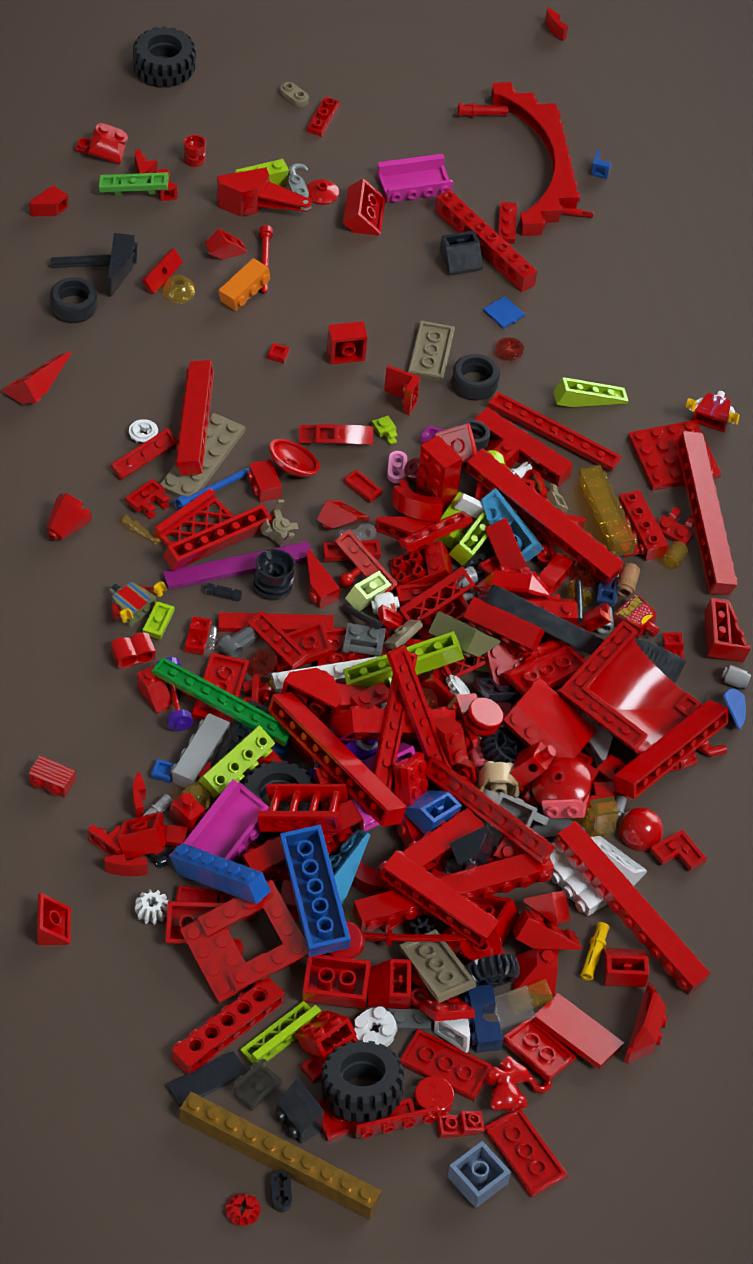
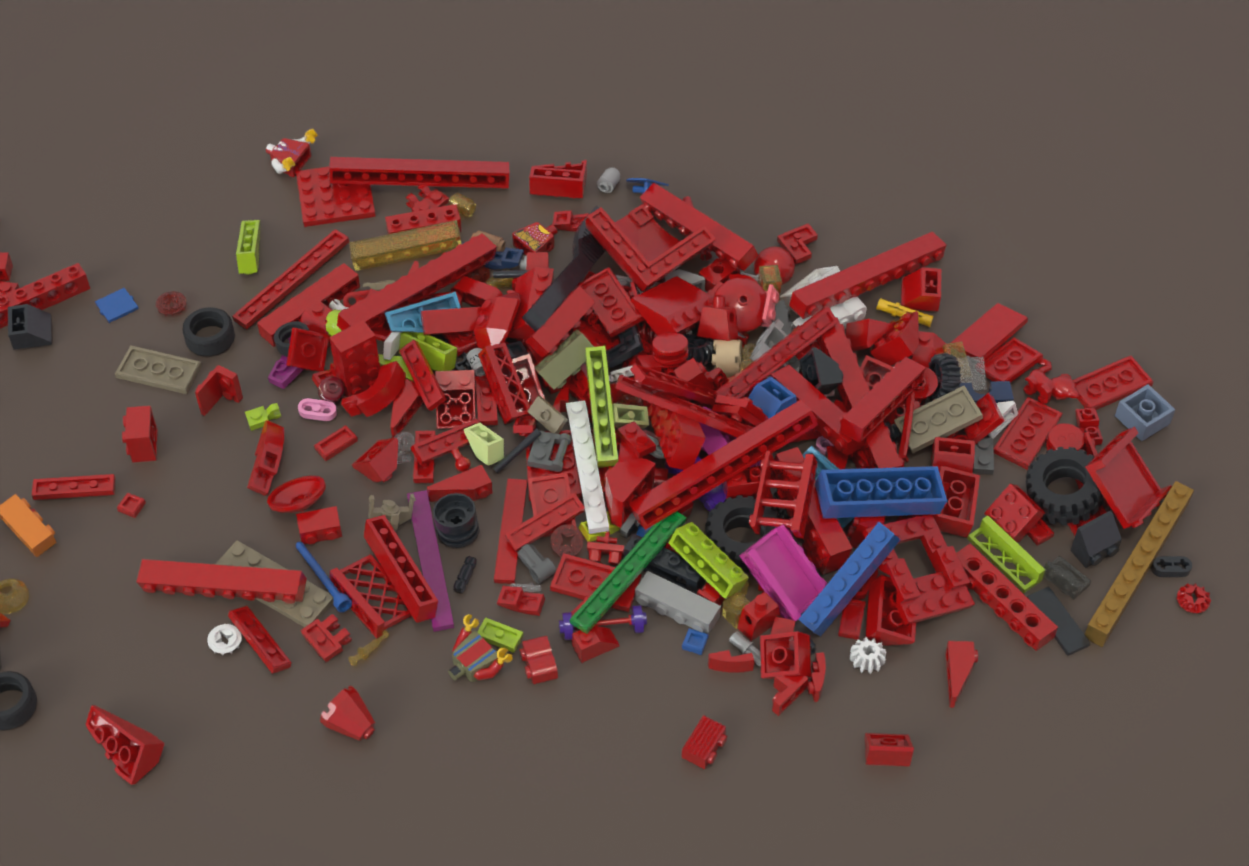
camera: 80 degrees left, 0 degrees up
(143, 984) = (959, 665): none -> red slope
(291, 311) = (73, 487): none -> red plate
(369, 1133) = (1126, 480): none -> red panel
(372, 1017) = (996, 468): white plate -> none
(386, 599) = (504, 429): white head -> none
(647, 1026) = (981, 282): red wedge -> none

